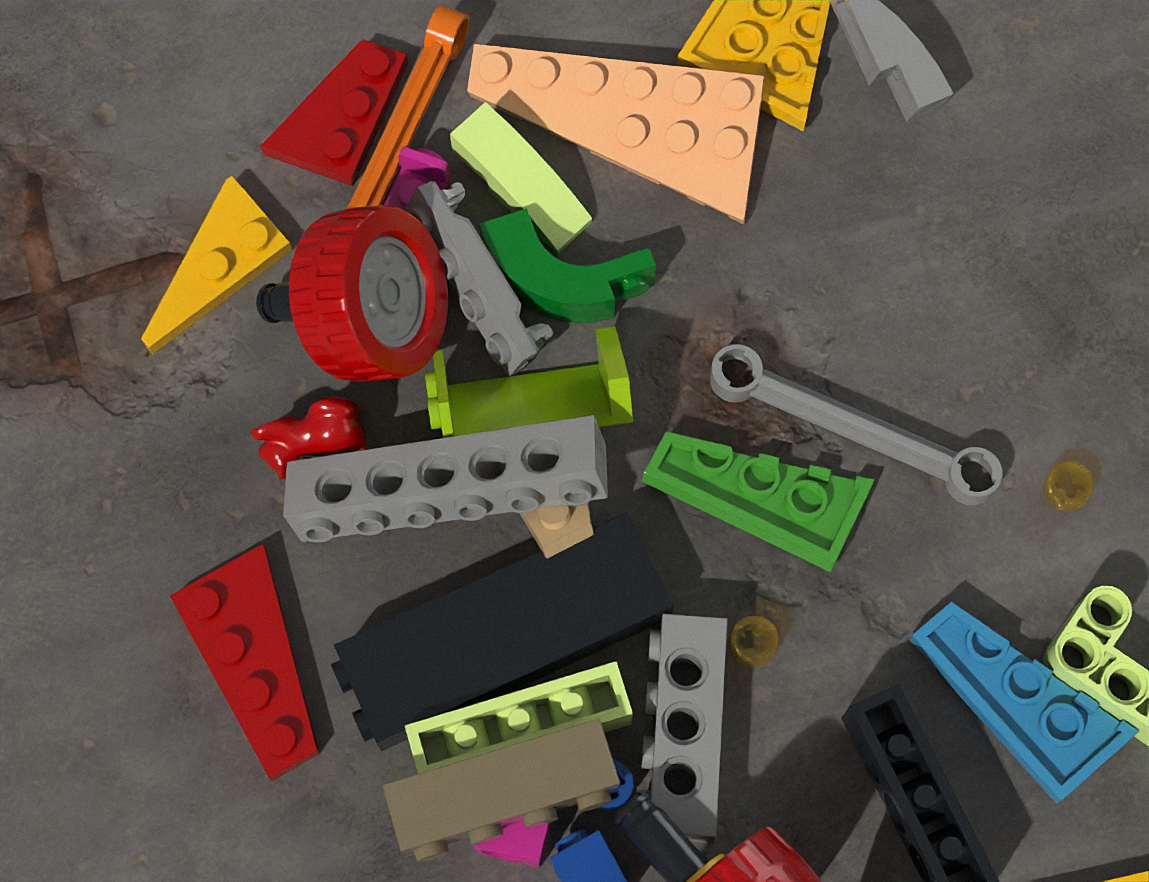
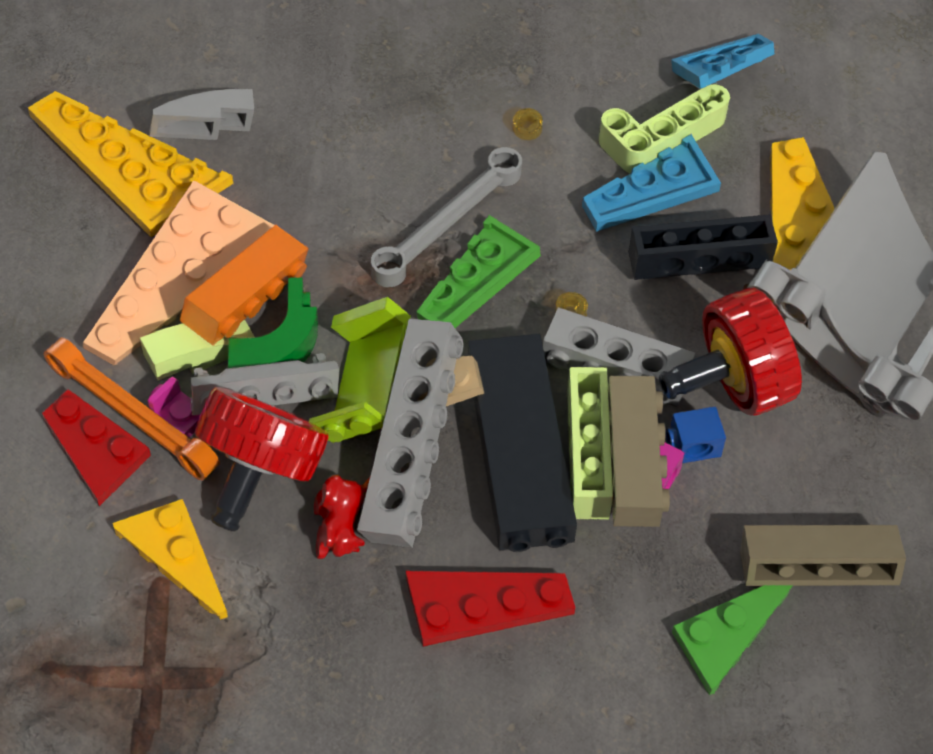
camera: 75 degrees left, 15 degrees down
(619, 199) = (244, 285): none -> orange brick

